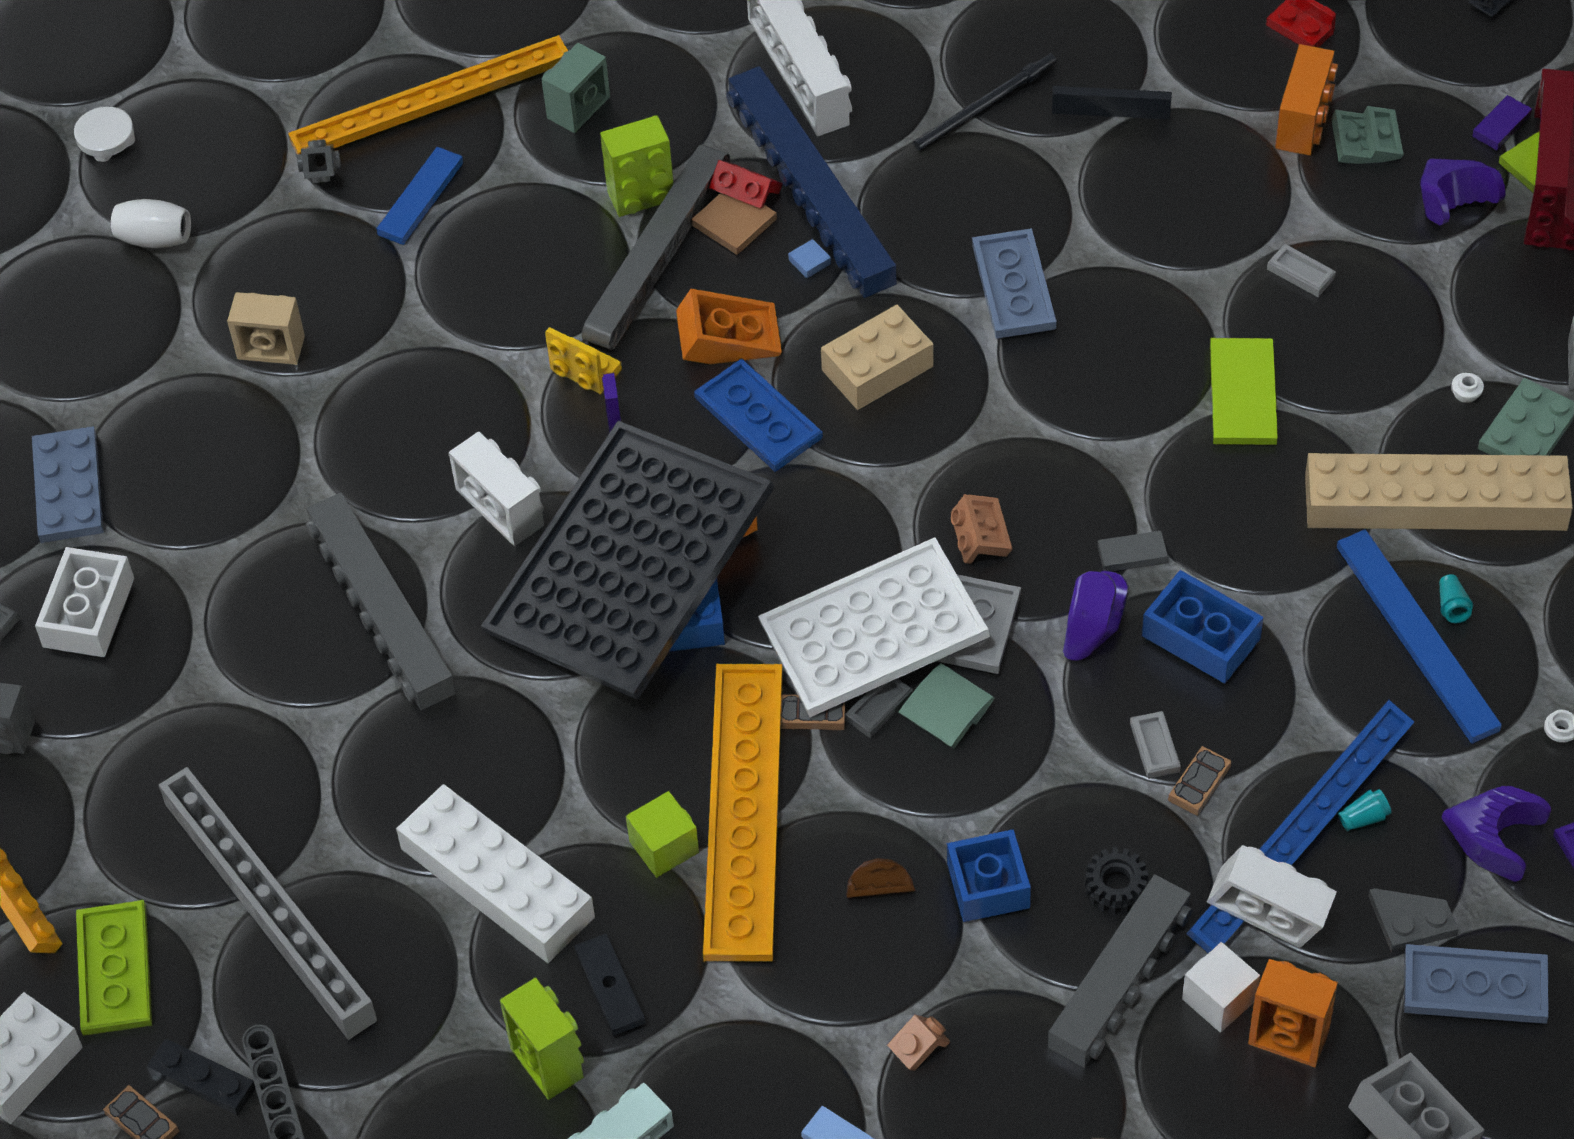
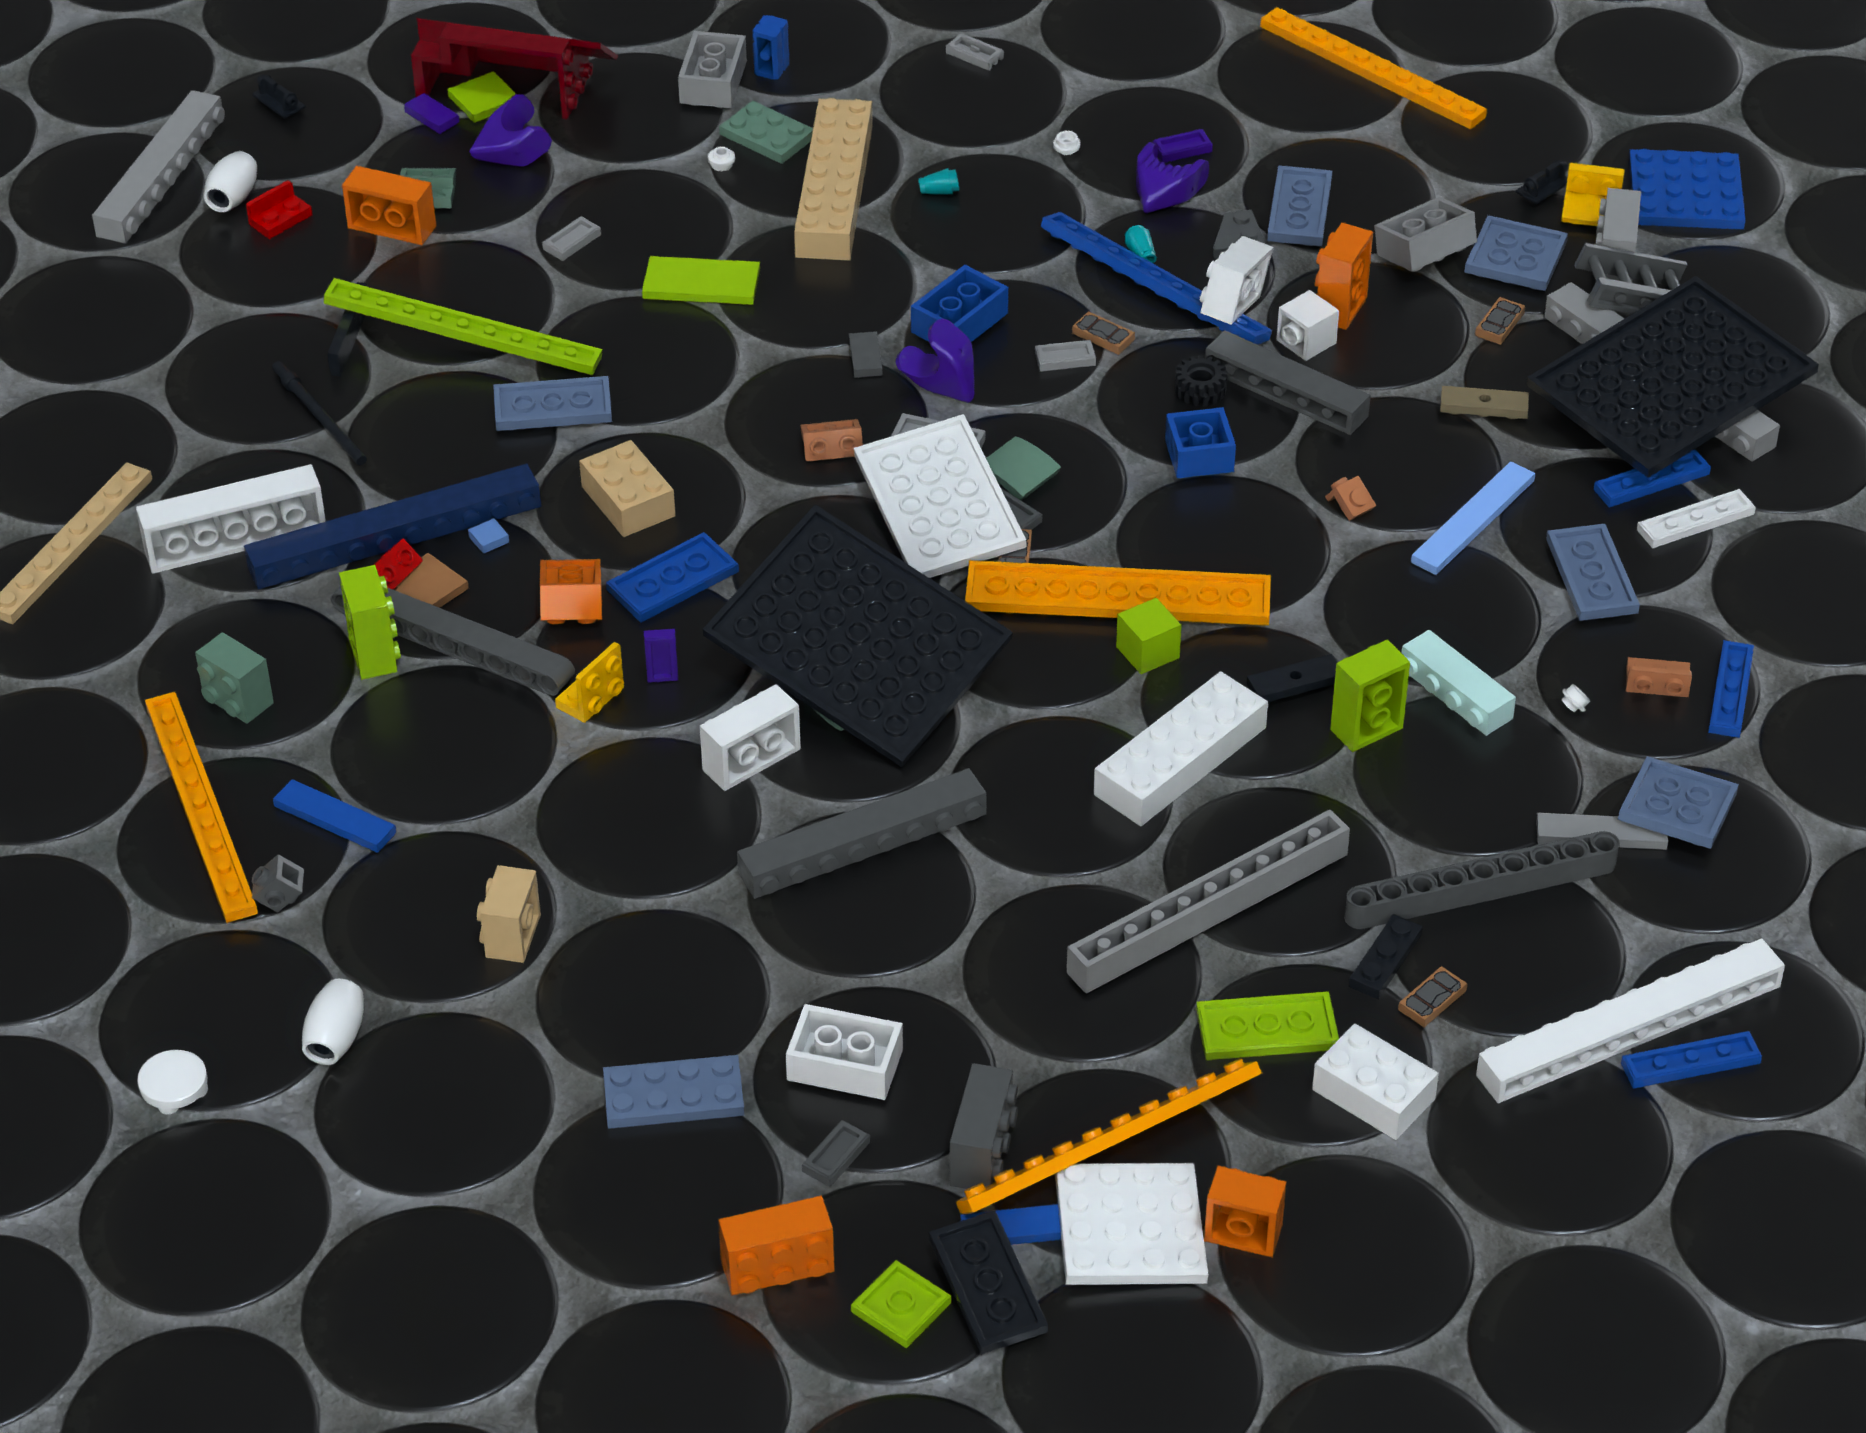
camera: 90 degrees left, 10 degrees down
(879, 877) = (1193, 515): reddish brown plate -> none
(1110, 189) = (463, 326): none -> lime plate
(1419, 636) = (969, 208): blue tile -> none

